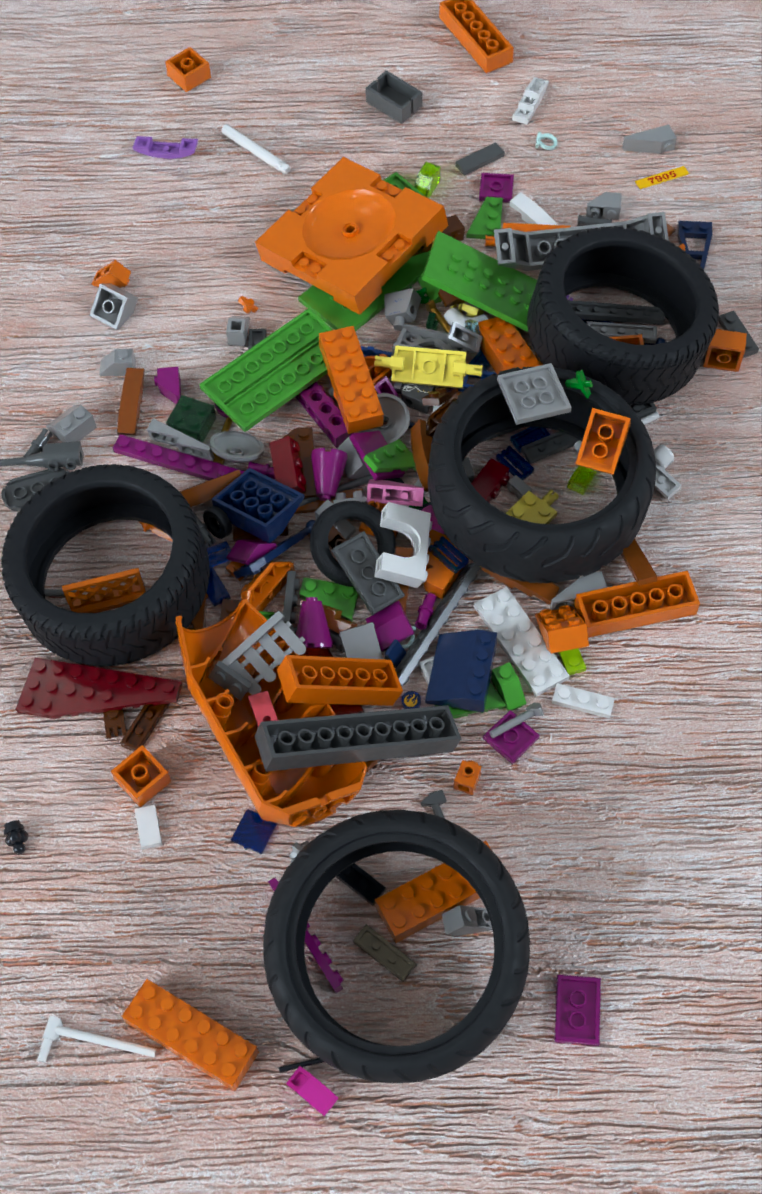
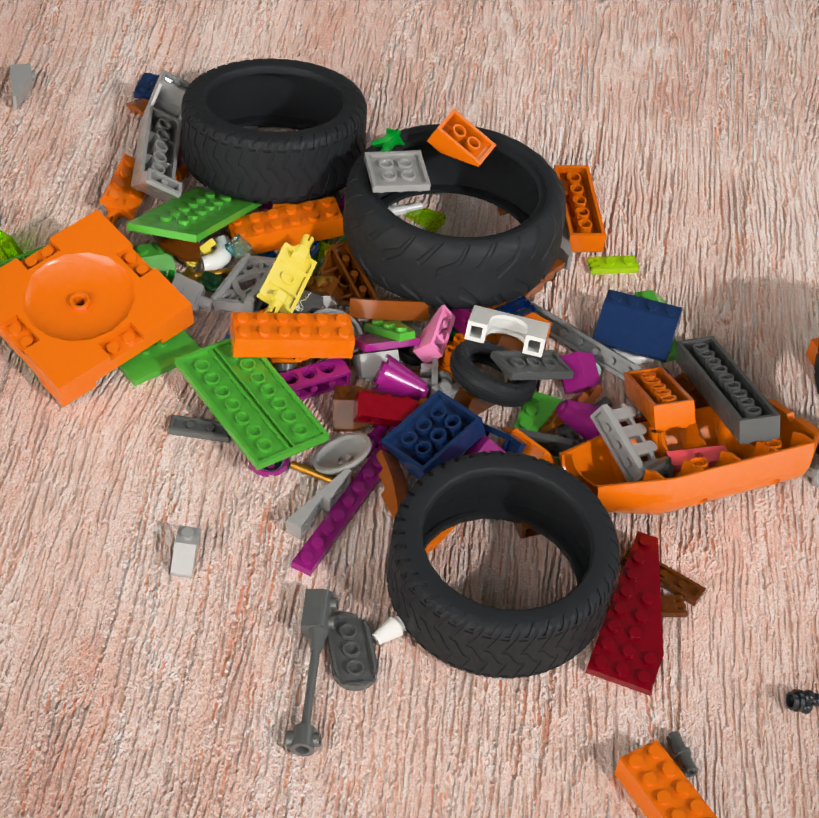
camera: 90 degrees left, 15 degrees down
(38, 444) = (289, 643): dark grey pin -> none
(72, 424) = (265, 606): light grey slope -> none
(103, 600) = (515, 577): orange fence -> none
(112, 273) = (42, 545): orange slope -> none
(113, 305) = (91, 547): light grey slope -> none
(130, 401) = (246, 543): dark orange slope -> none
(141, 776) = (740, 580): orange brick -> none
(148, 826) = (789, 589): white tile -> none
(169, 383) = (233, 505): magenta slope -> none
(192, 417) = (289, 490): clear green brick -> none
(237, 330) = (169, 433): light grey slope -> none
(248, 304) = (137, 423): orange piece -> none
(253, 832) = (791, 509): clear blue piece -> none
(361, 642) = (607, 390): light grey piece -> none
(395, 653) = (609, 377): dark blue slope -> none
(425, 611) = (564, 345): magenta pin -> none
(434, 800) = (761, 377): dark grey piece -> none
(464, 338) = (252, 252): light grey slope -> none
(467, 776) = (741, 347): orange brick -> none
(487, 219) = (66, 214): bright green wing -> none
(496, 186) = (31, 204): magenta tile -> none
(513, 742) = (700, 317): magenta tile -> none
(521, 641) = (590, 293): white plate -> none
(530, 210) = (89, 180): white slope -> none
(533, 709) = (677, 293): light grey piece -> none
(562, 629) = (600, 255): orange slope -> none
(583, 700) = (665, 266): white plate -> none
(584, 220) = (113, 145): dark grey pin -> none
(605, 206) = (97, 131): light grey slope -> none
(662, 177) = (66, 93): yellow sticker -> none

